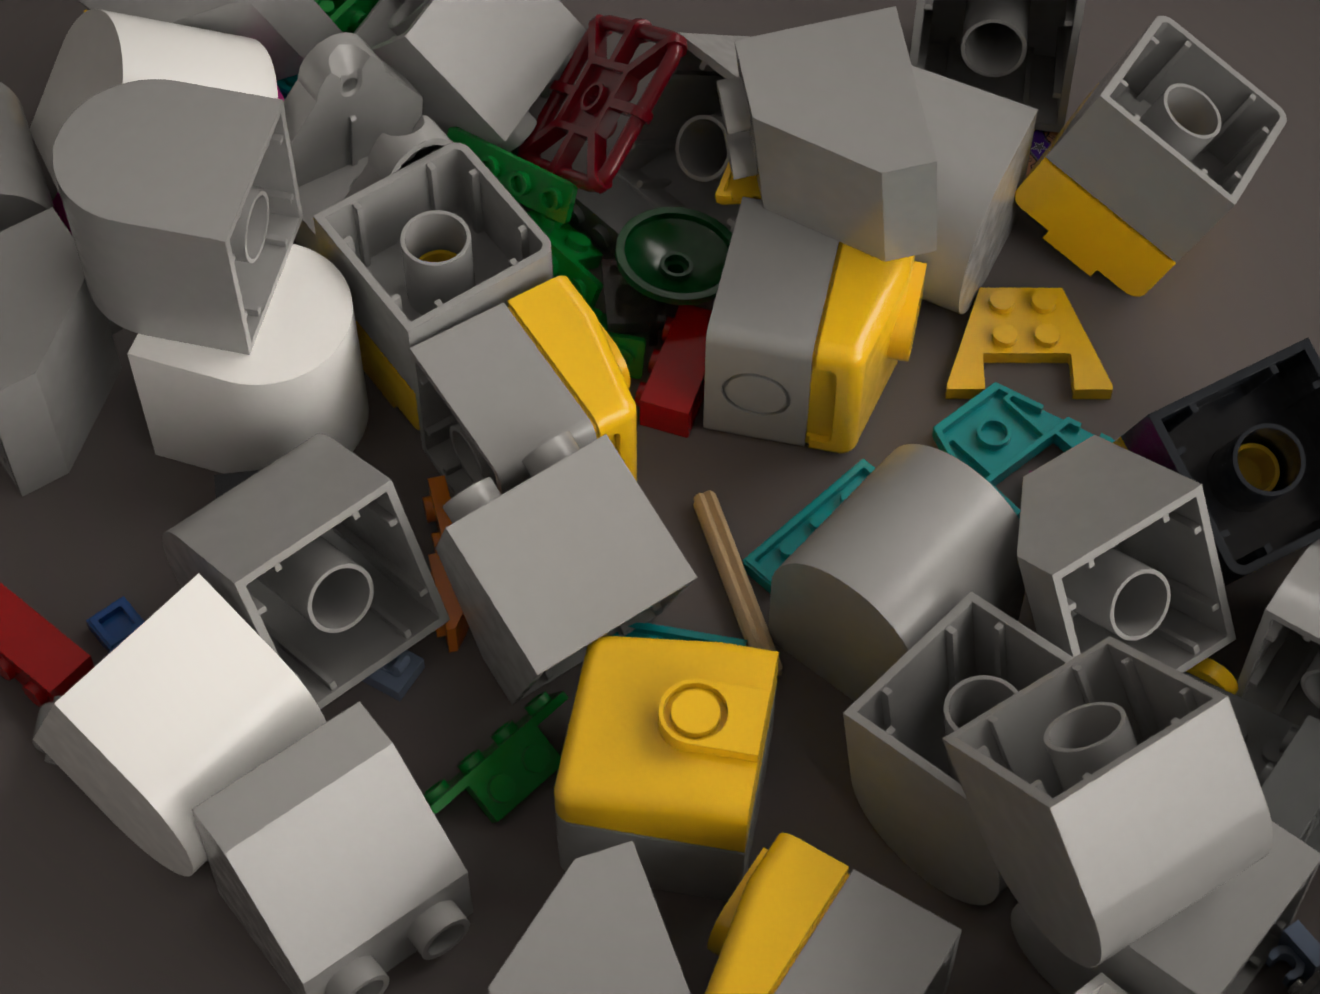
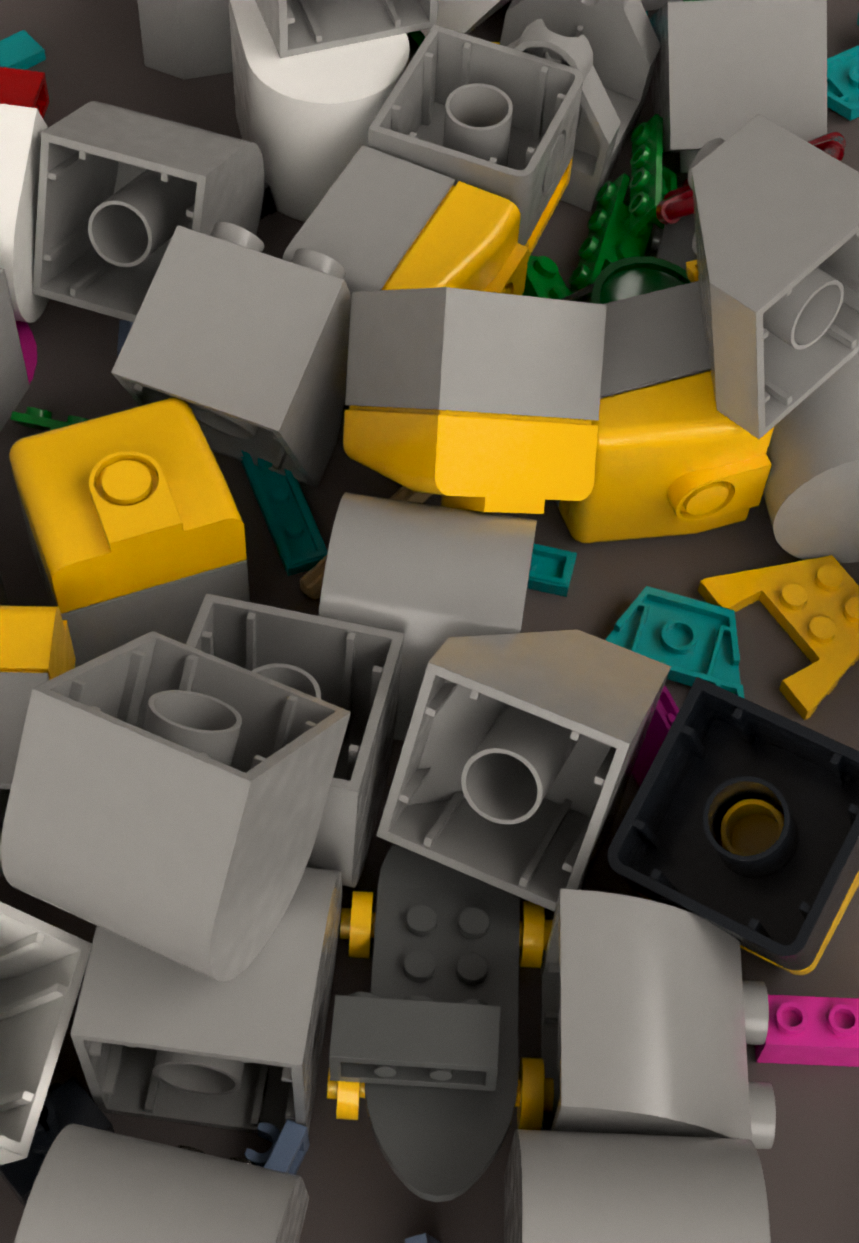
camera: 55 degrees right, 0 degrees up
(757, 416) = (475, 395): none -> piece

